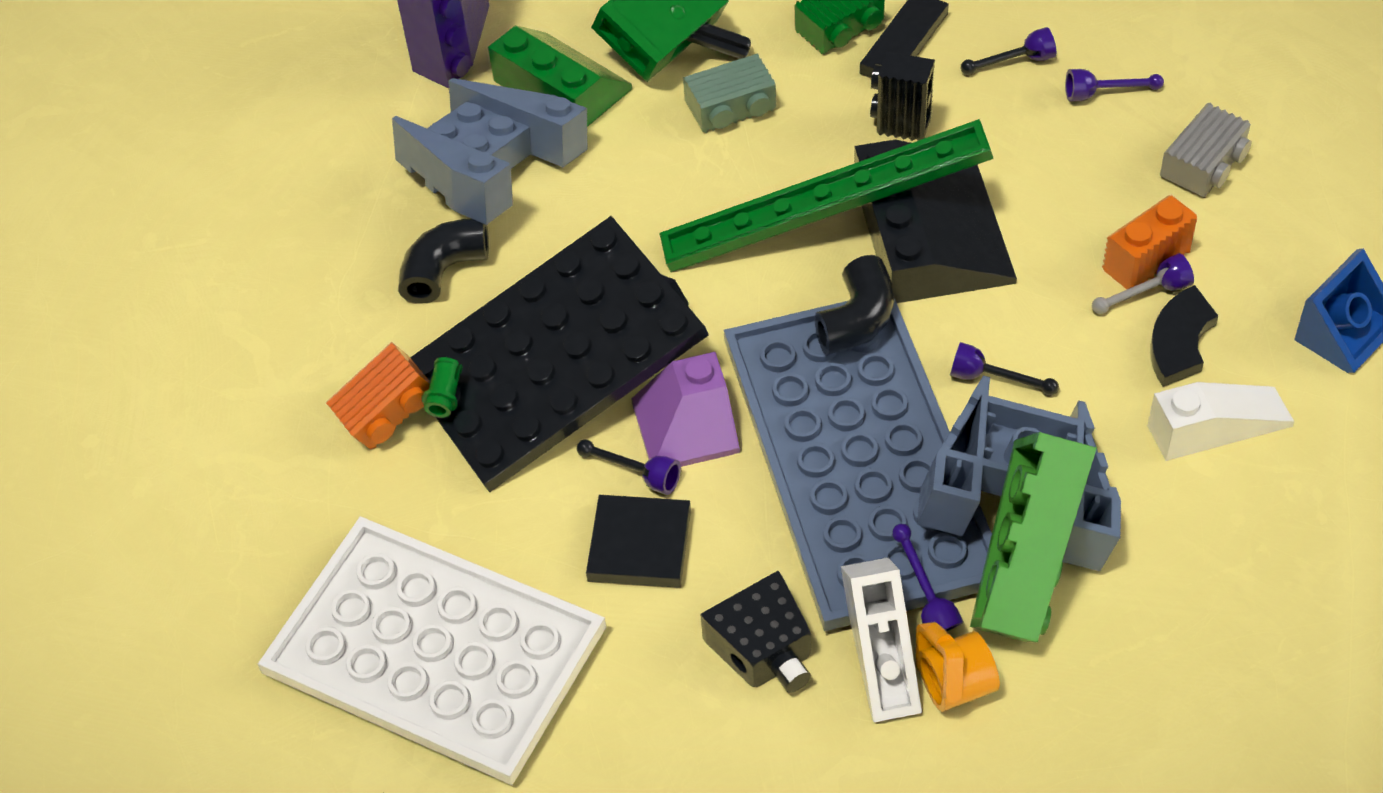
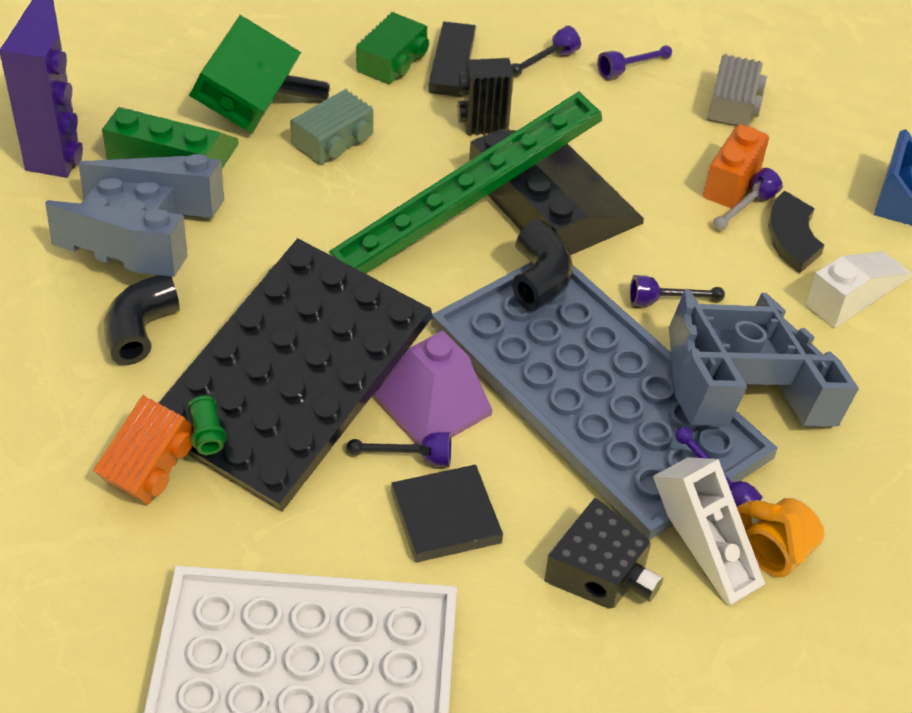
camera: 30 degrees left, 5 degrees down
(1031, 535) = (797, 401): bright green wedge -> none

